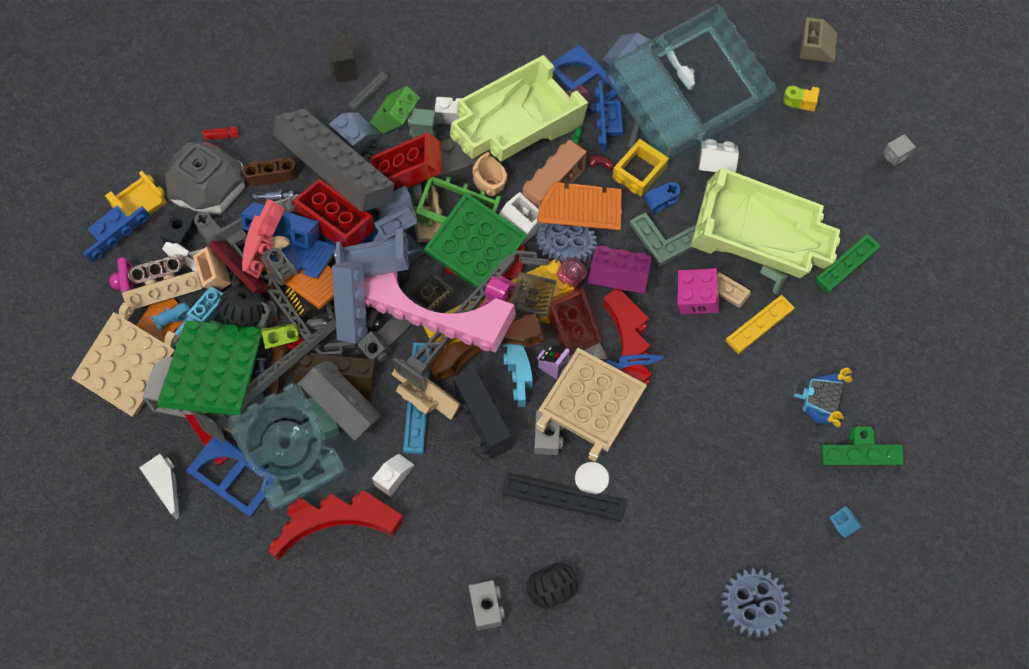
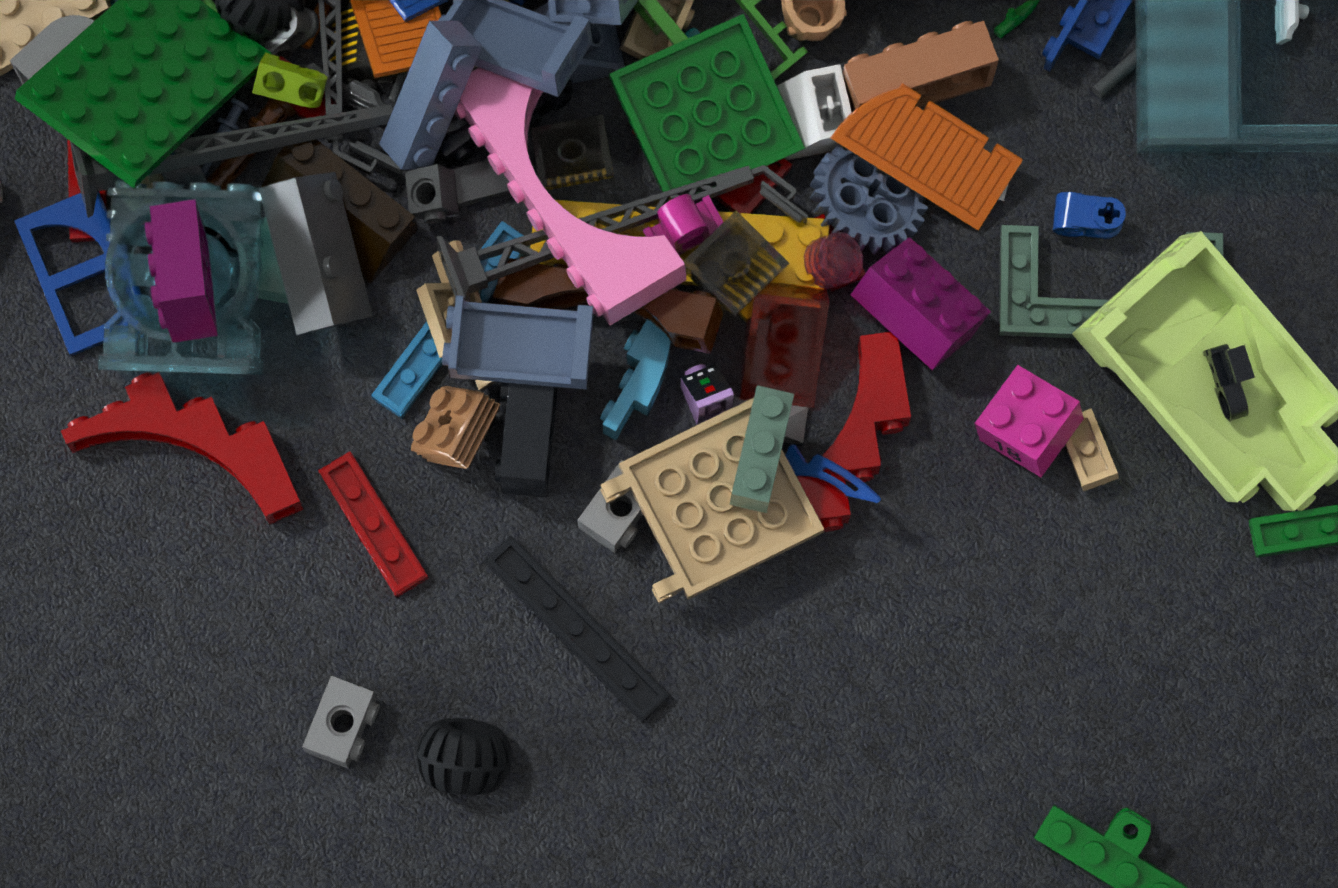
camera: 30 degrees right, 10 degrees up
(287, 438) = (181, 271): none -> magenta brick
(392, 474) = (331, 422): white slope -> none
(441, 508) = (373, 524): none -> red tile
(452, 440) = (454, 426): none -> medium nougat brick
(462, 383) = (519, 344): none -> sand blue panel
(591, 478) = (643, 625): white sticker -> none
(598, 365) = (761, 449): none -> sand green brick
(604, 161) = (1030, 85): dark red arm -> none
(650, 155) = (1120, 127): yellow window -> none
(718, 155) = (1237, 200): white slope -> none
(760, 324) = (1100, 539): yellow tile -> none
(764, 222) = (1228, 371): none -> black piece
(775, 275) = (1184, 474): sand green tile -> none
(823, 397) = (1112, 727): torso -> none

